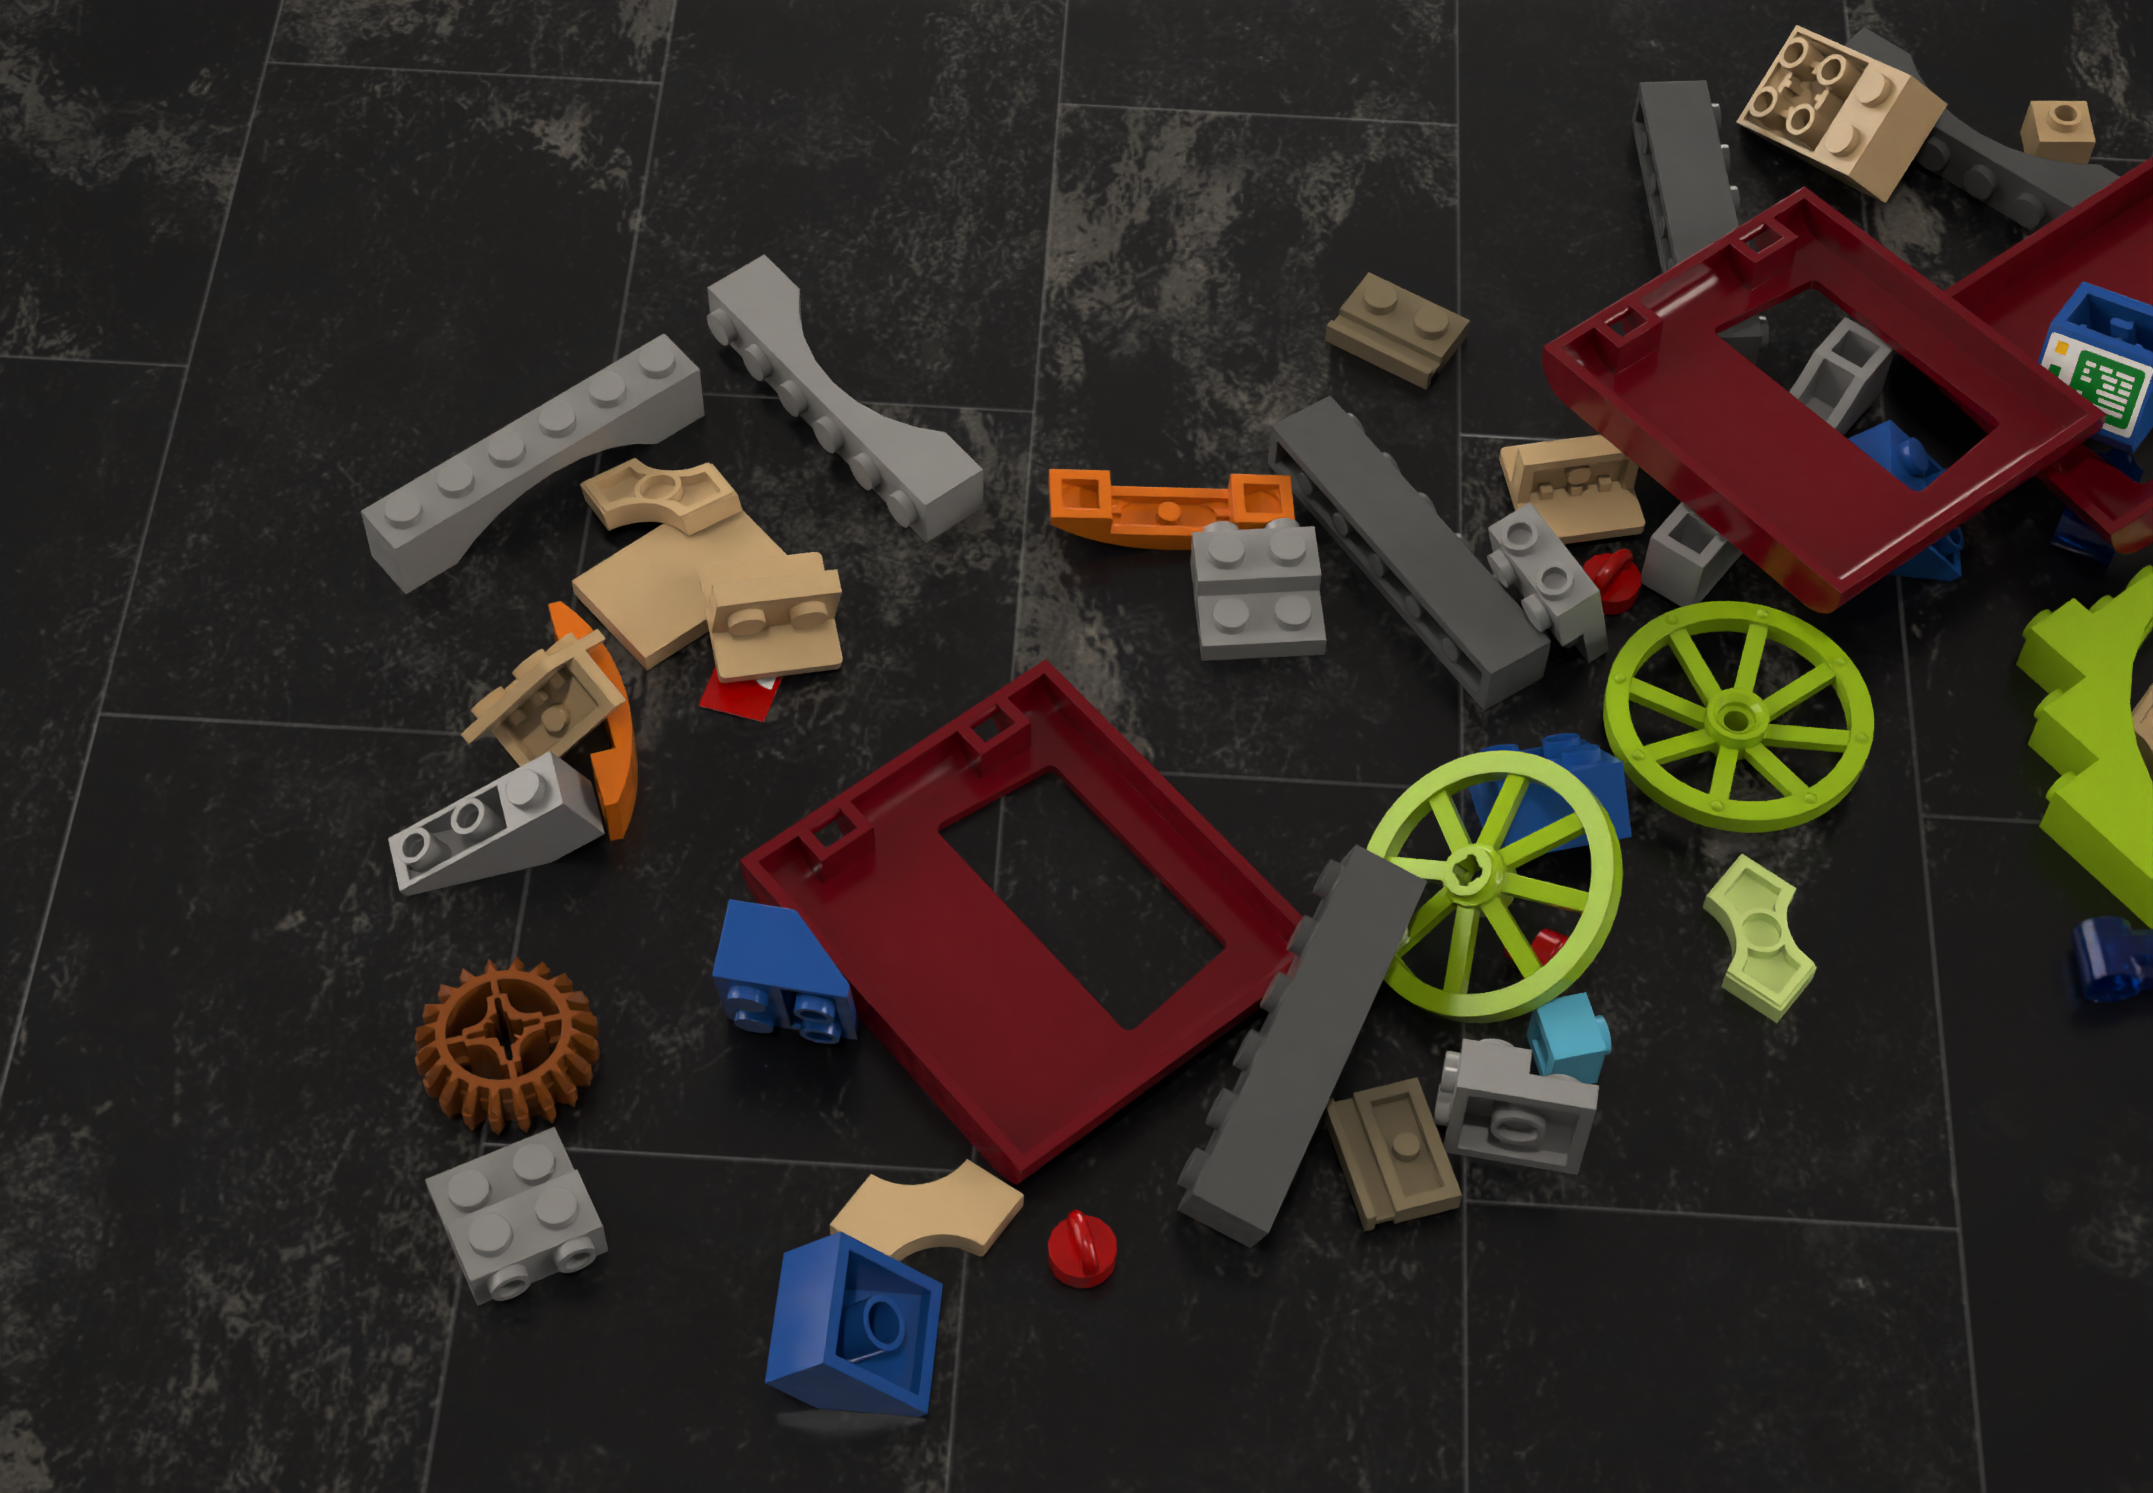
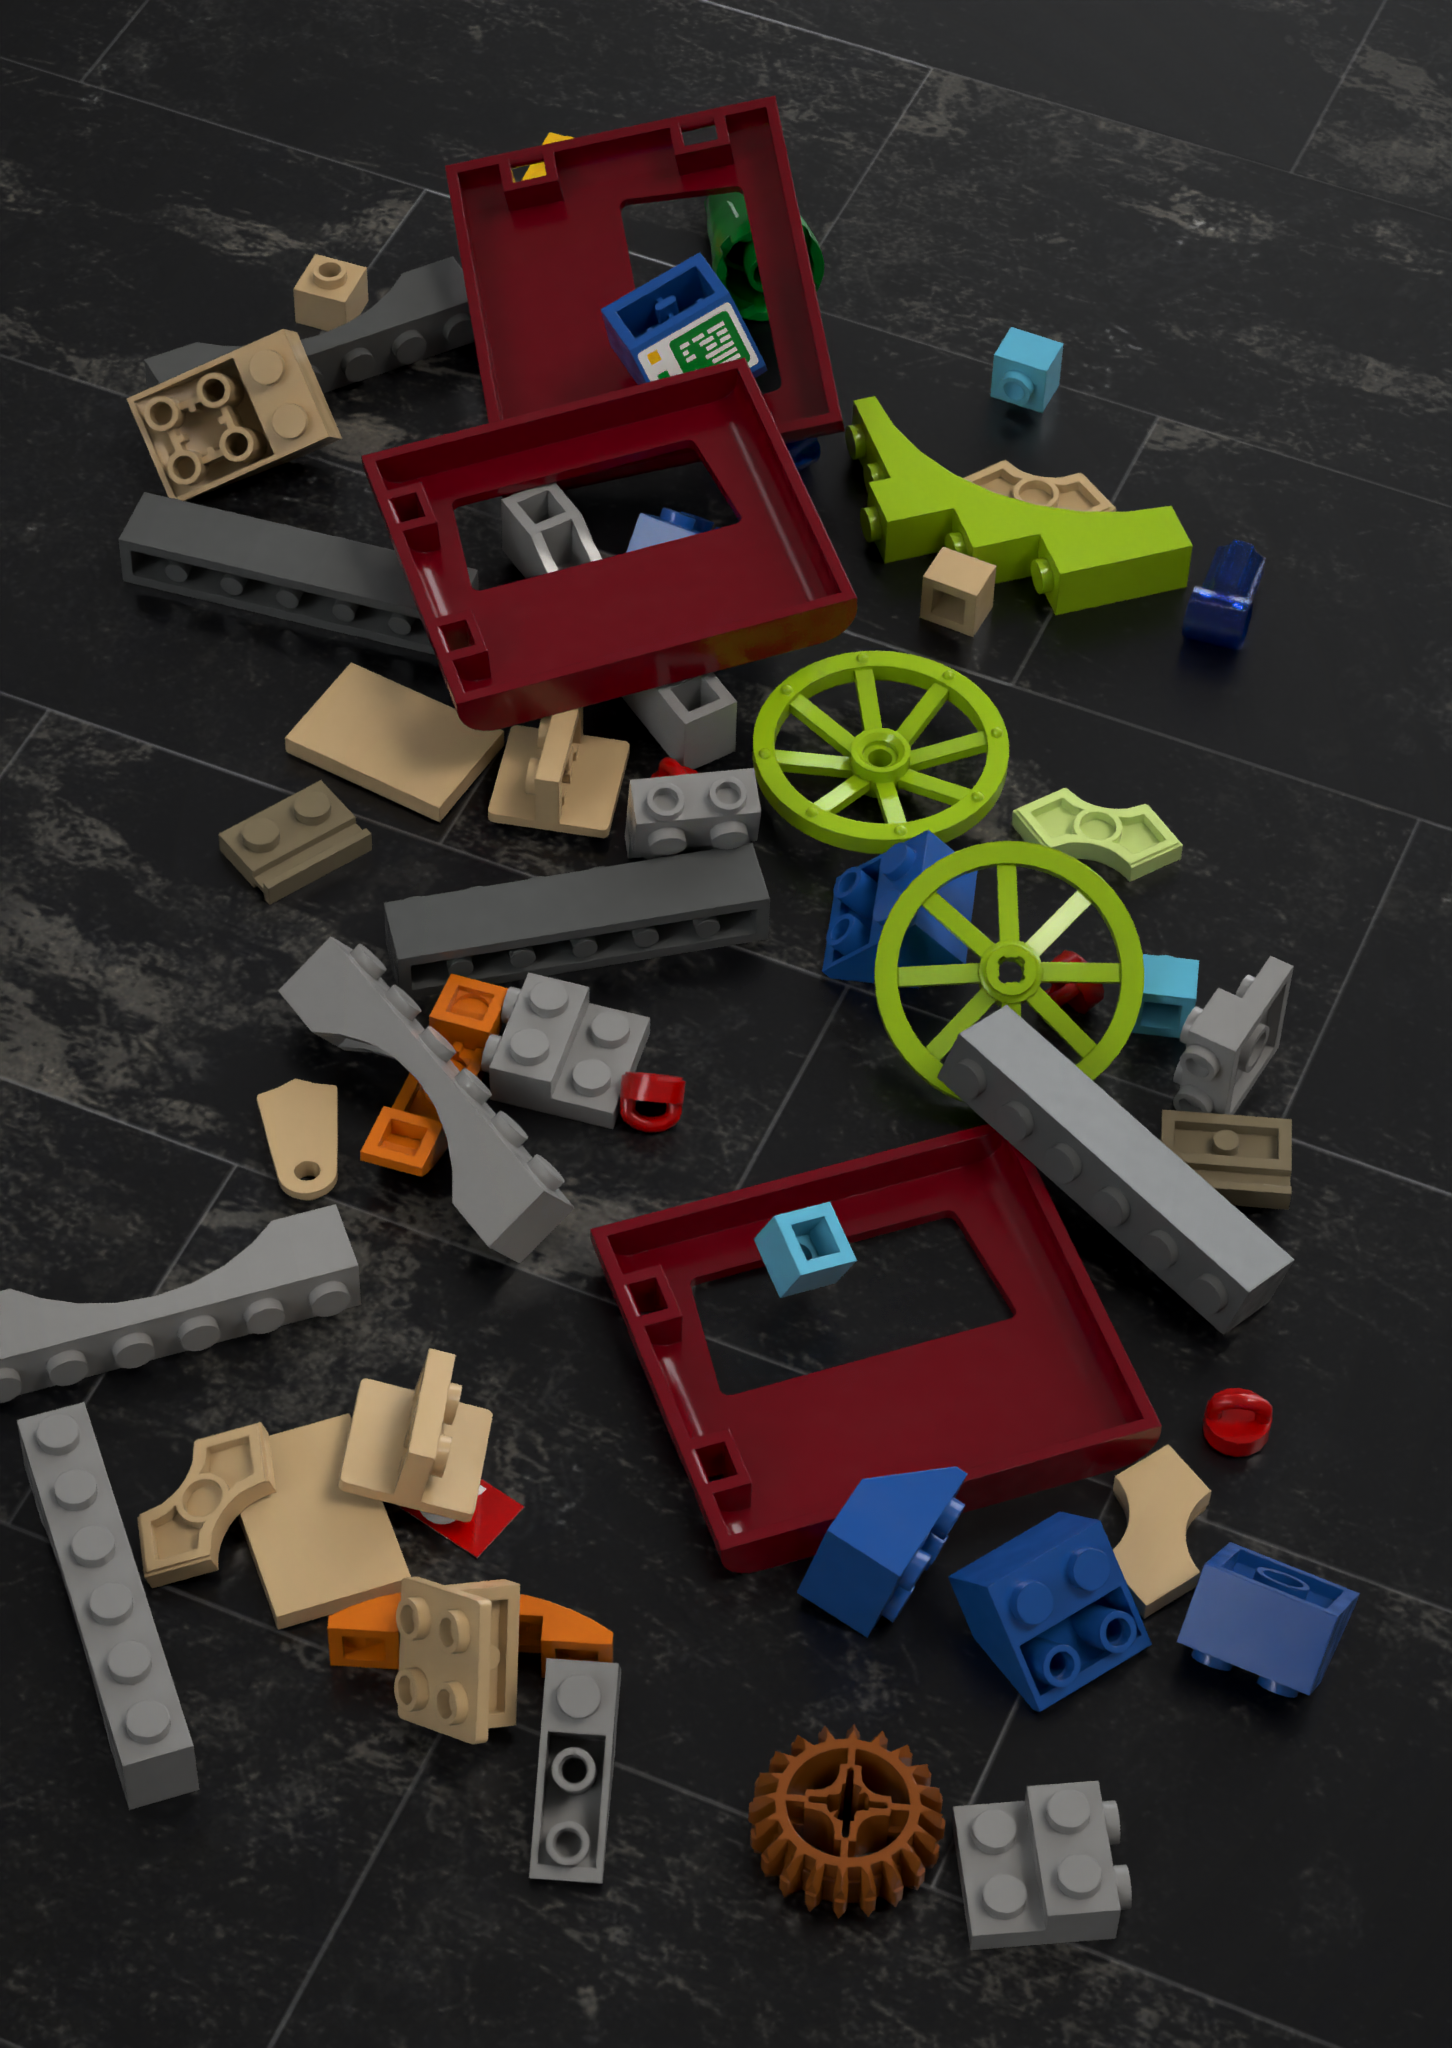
camera: 70 degrees left, 5 degrees down
(790, 1143) = (1051, 1608): none -> blue slope
(1075, 576) = (495, 1181): none -> light grey arch
(1076, 440) = (302, 1136): none -> tan piece
(1079, 793) = (805, 1249): none -> medium azure plate
(1240, 666) = (651, 1088): none -> red tile
(1517, 385) = (393, 742): none -> tan tile
(1998, 724) = (957, 591): none -> tan plate

